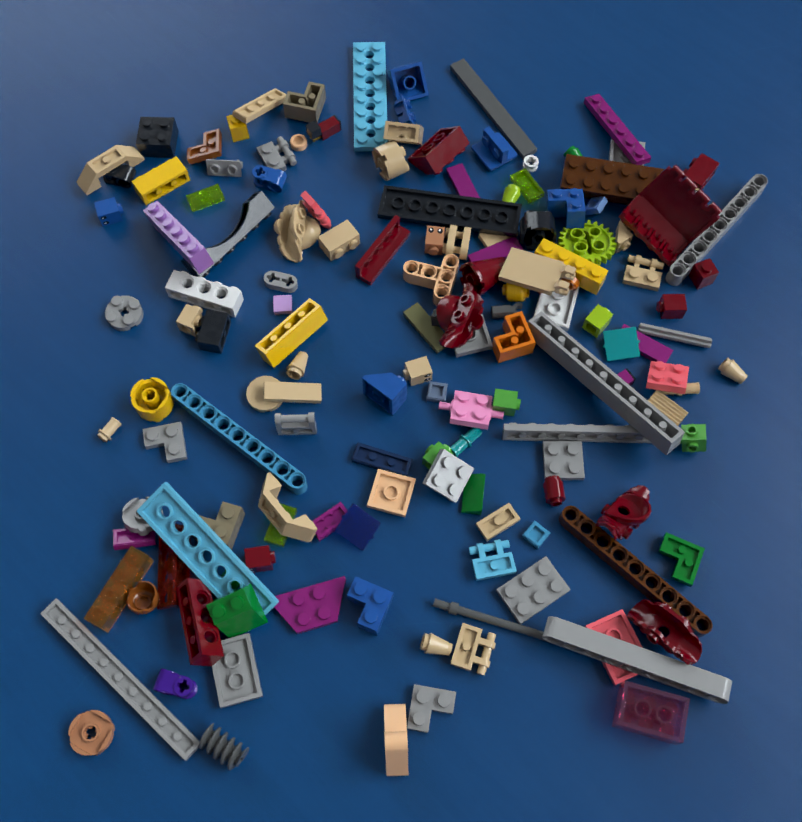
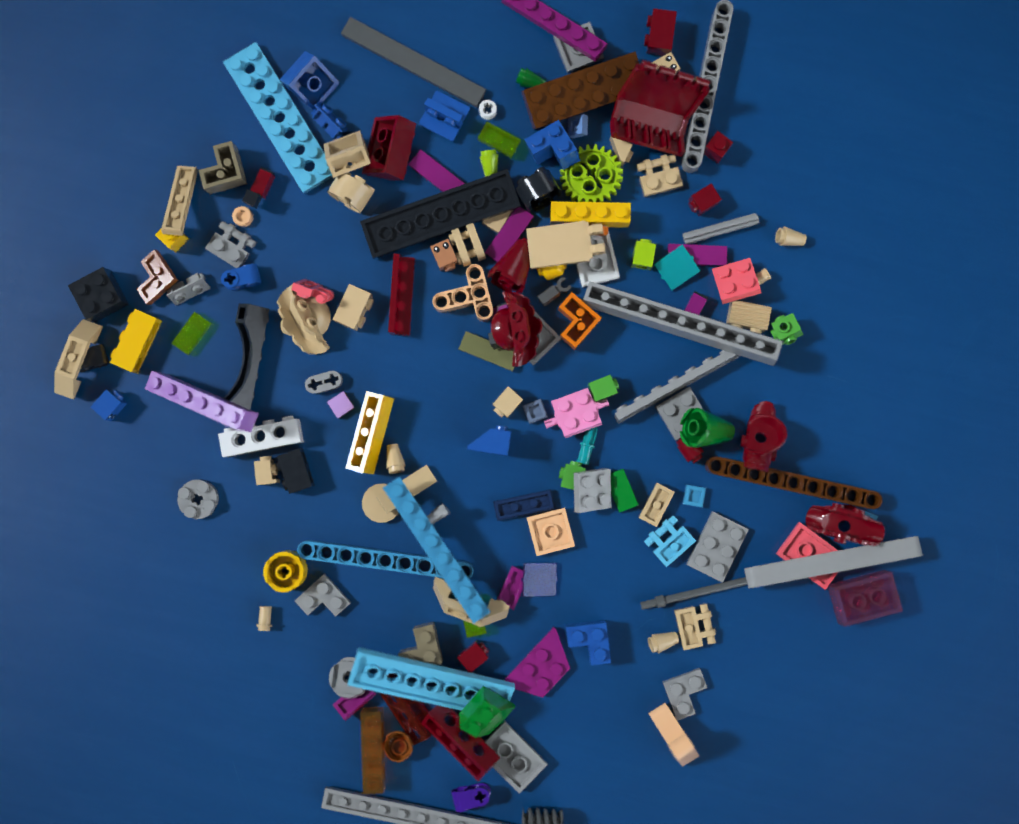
camera: 25 degrees left, 20 degrees up
(285, 445) = (436, 550): none -> dark azure plate
(578, 477) = (704, 428): none -> green cone
(687, 556) = (833, 445): green plate -> none

